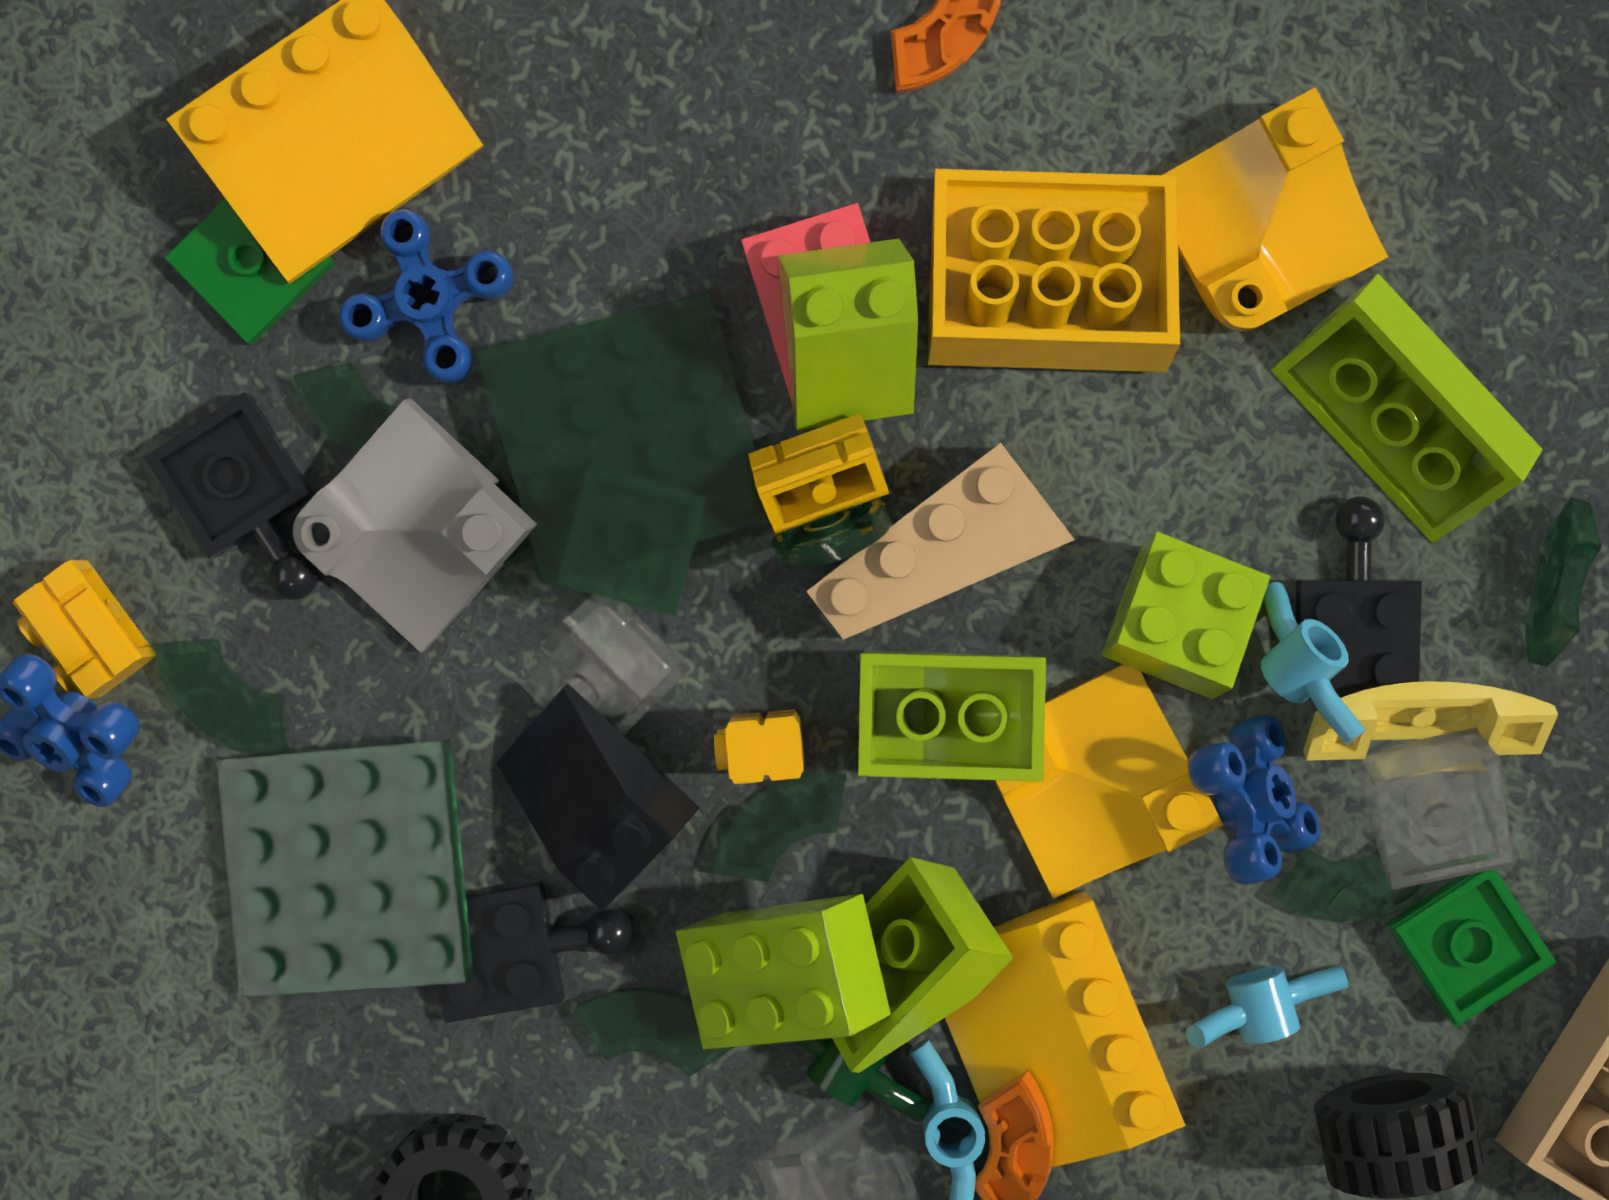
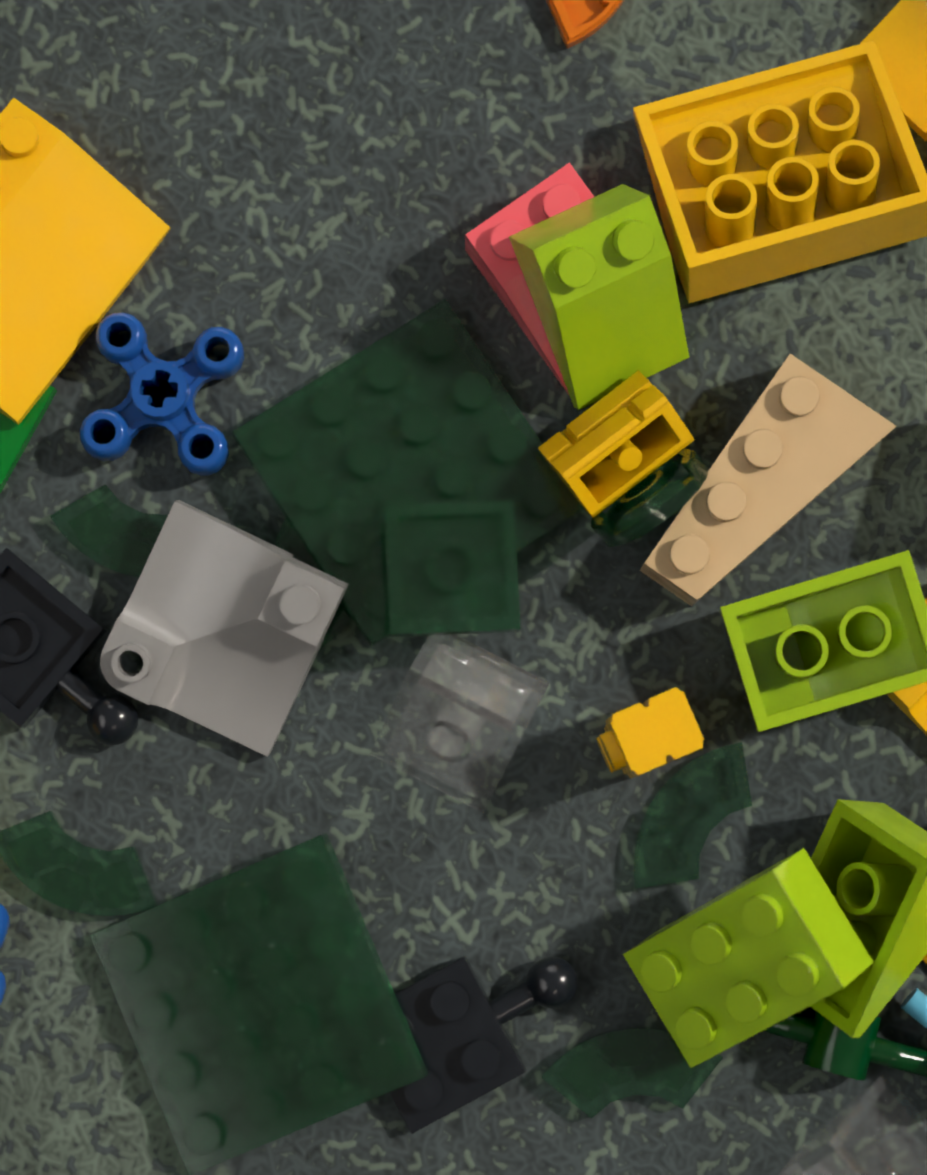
camera: 15 degrees left, 5 degrees down
(592, 797) = (492, 844): black slope -> none

